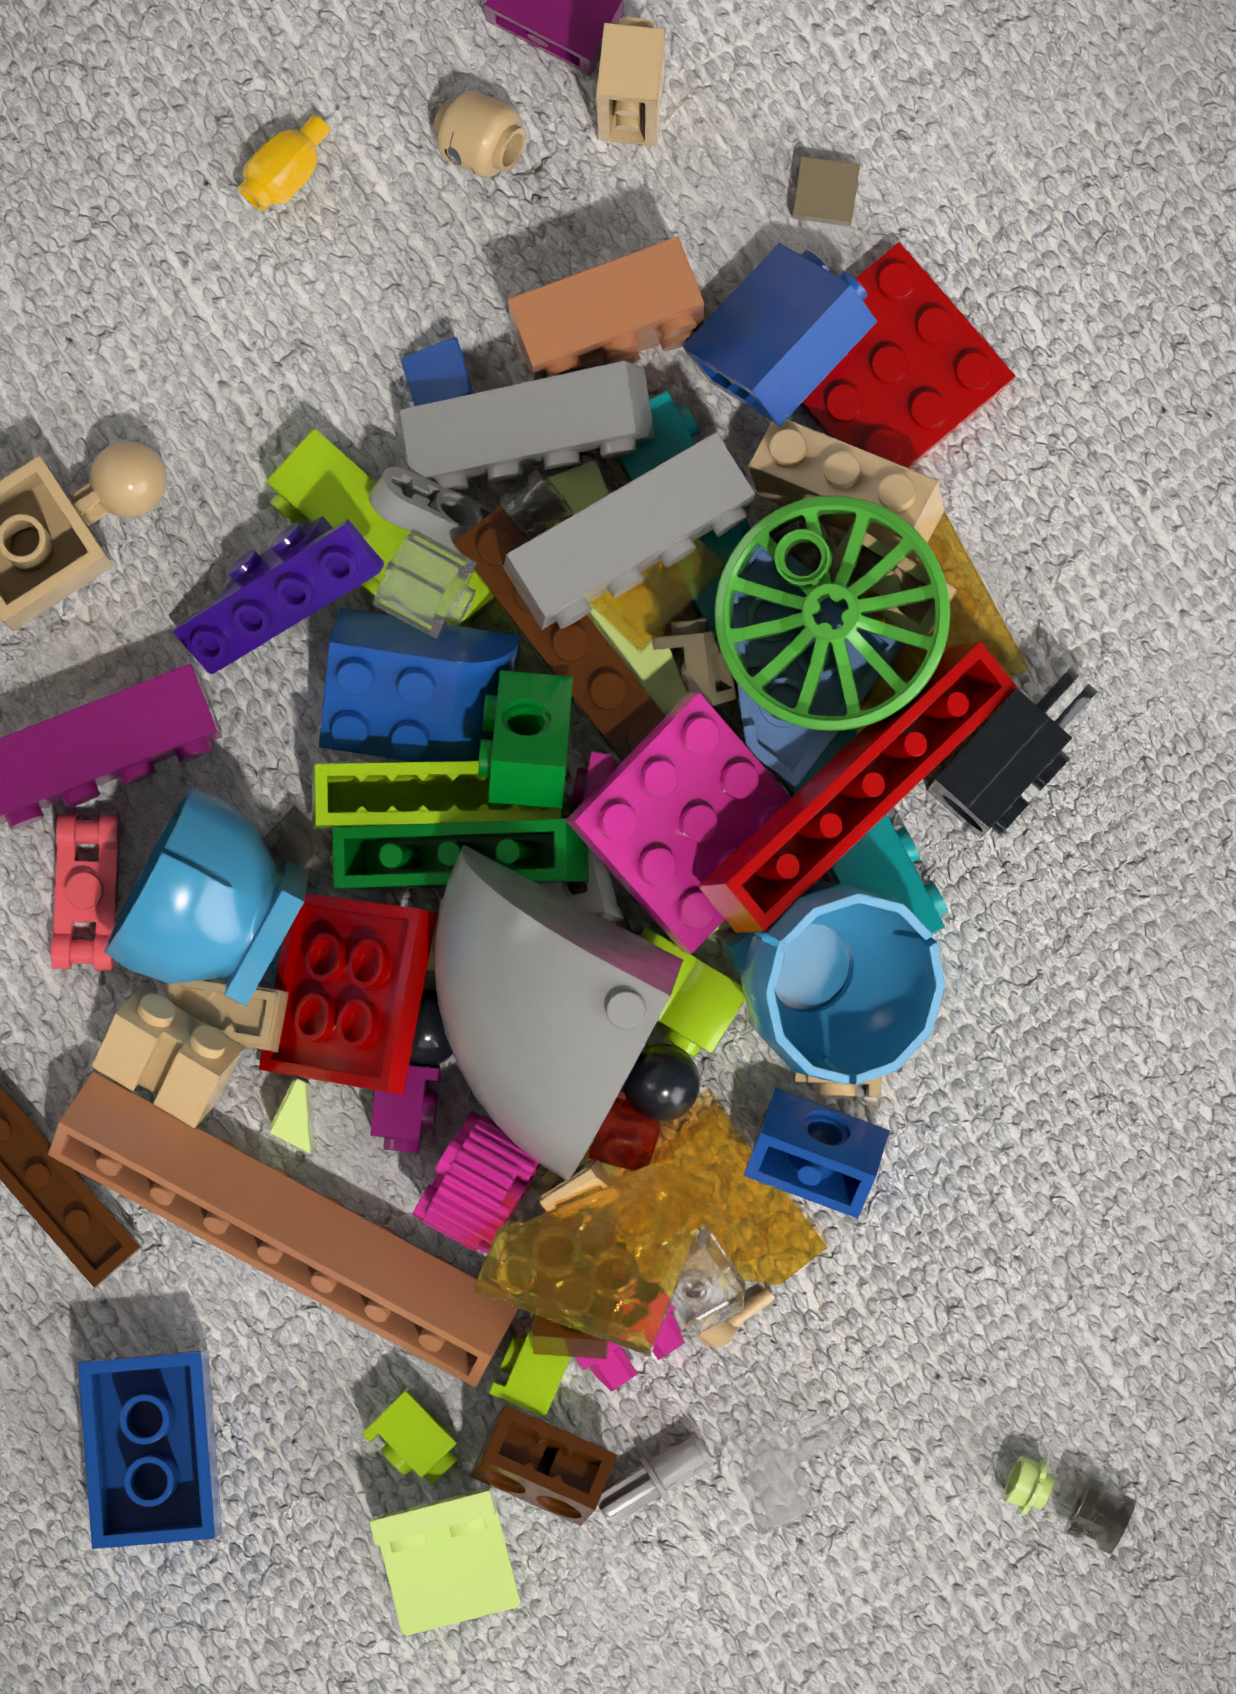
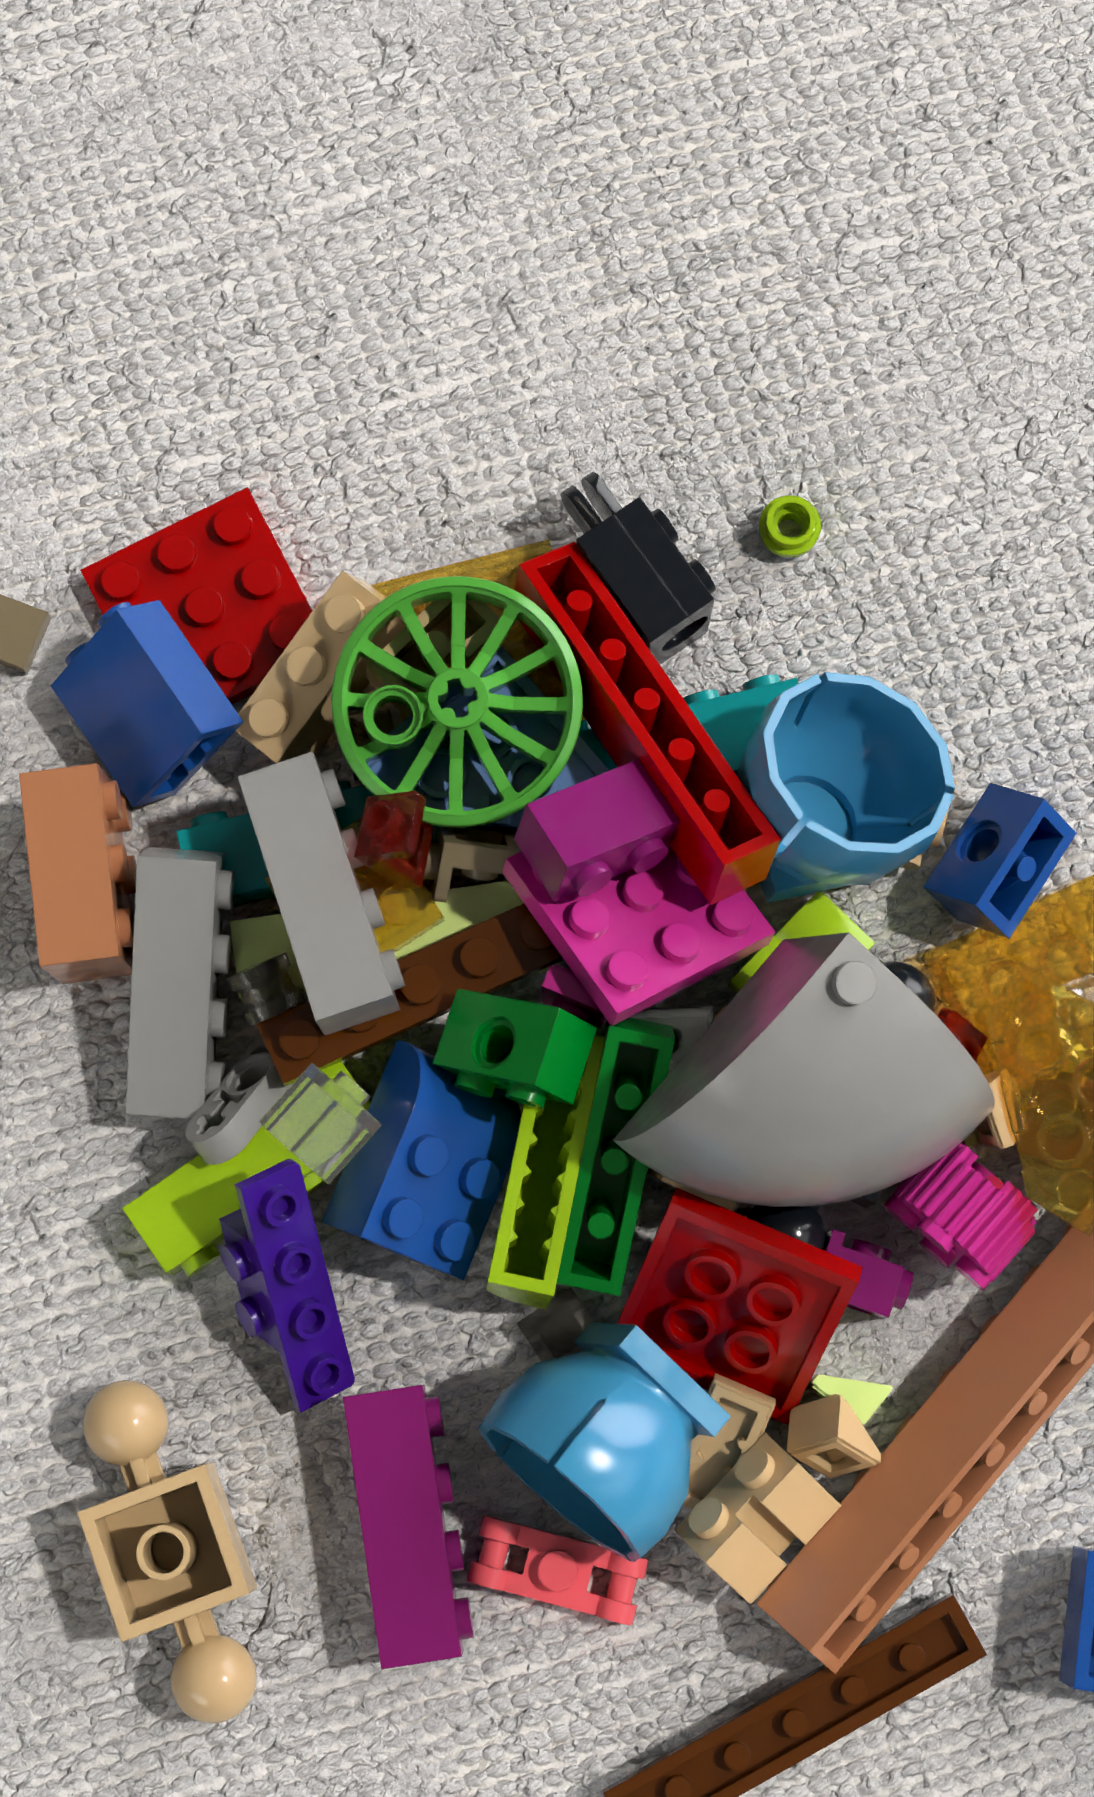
camera: 80 degrees left, 5 degrees down
(252, 1106) = (830, 1437): none -> tan slope
(437, 373) = (96, 1069): blue slope -> none
(693, 587) = (394, 838): none -> clear red bracket
(739, 767) = (596, 831): none -> magenta brick
(1118, 892) = (793, 509): none -> lime plate

